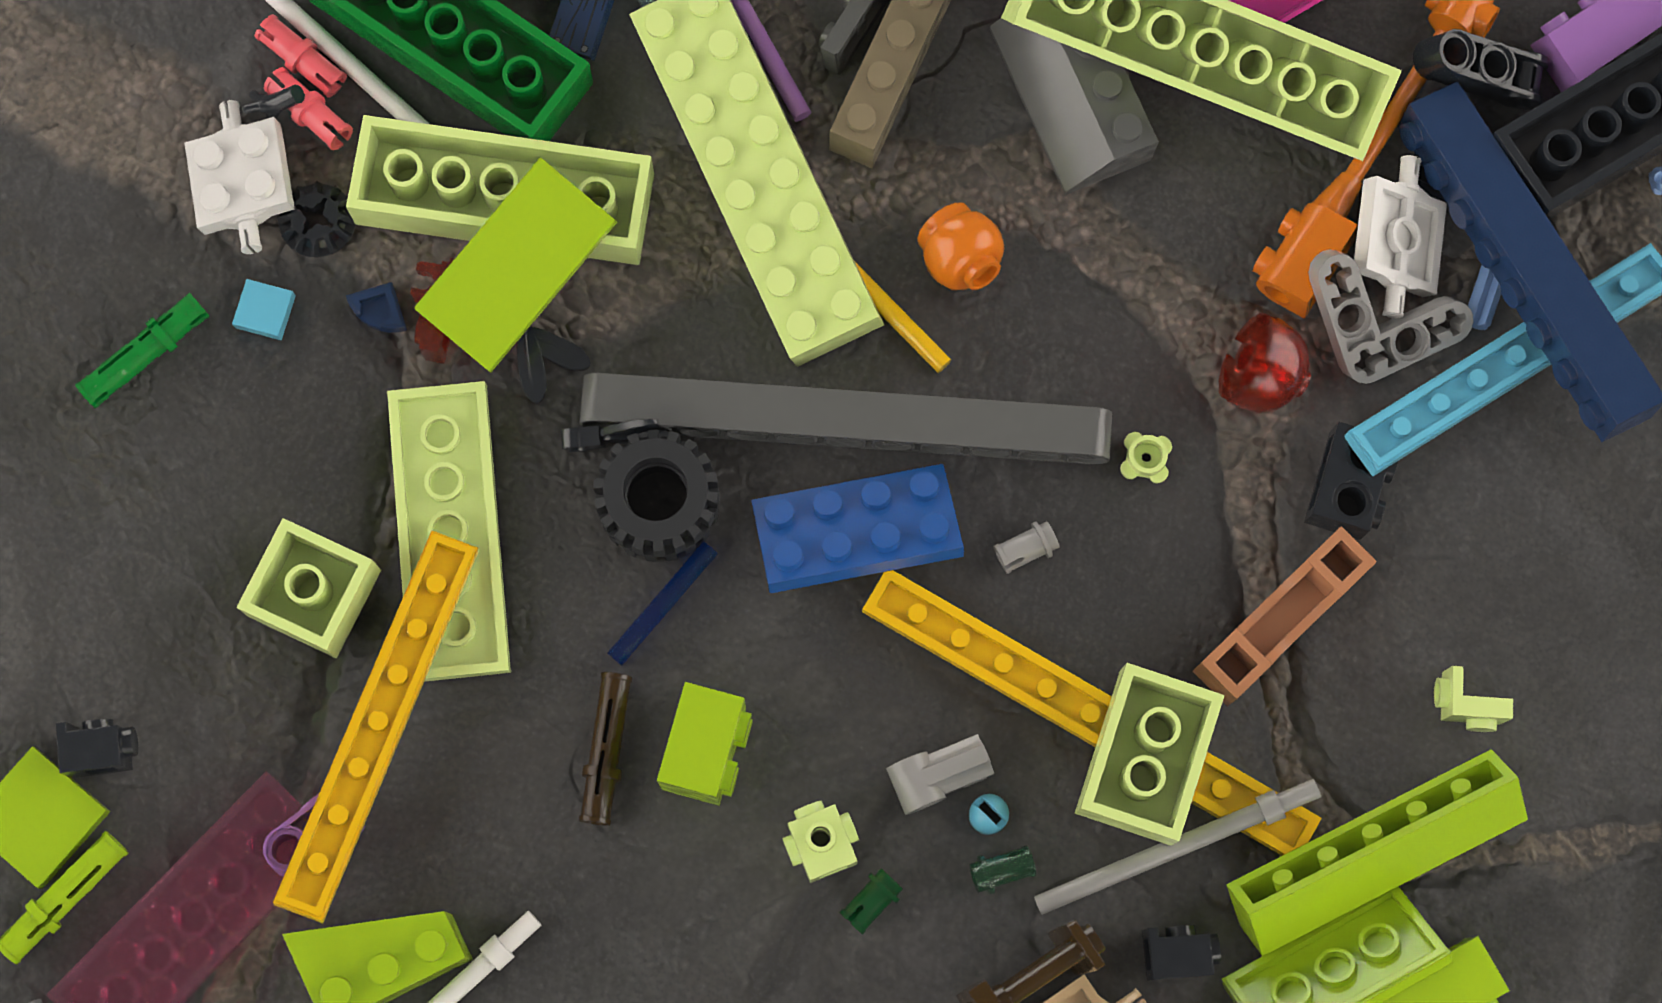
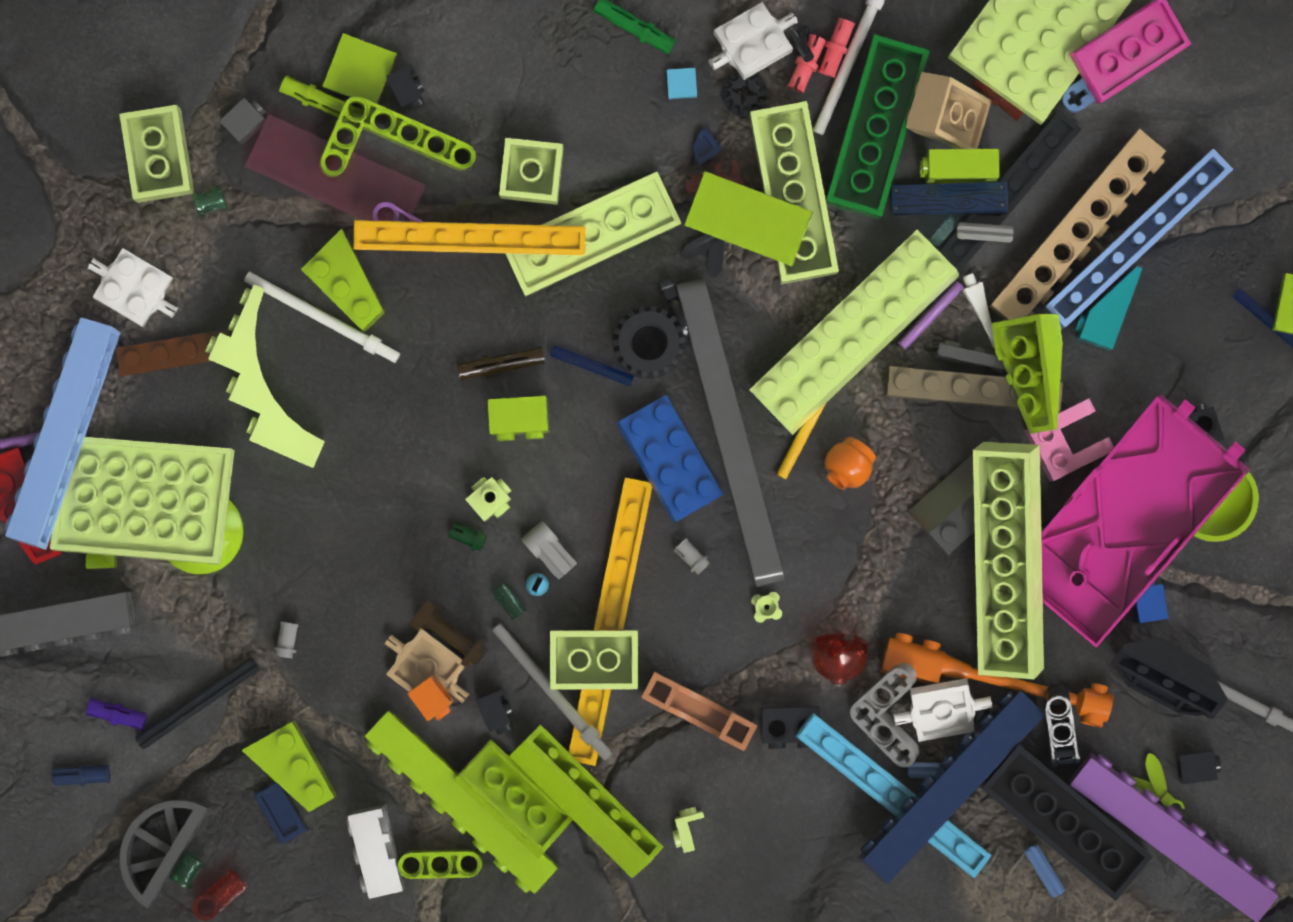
camera: 75 degrees right, 10 degrees up
(160, 796) = (393, 134): none -> lime beam

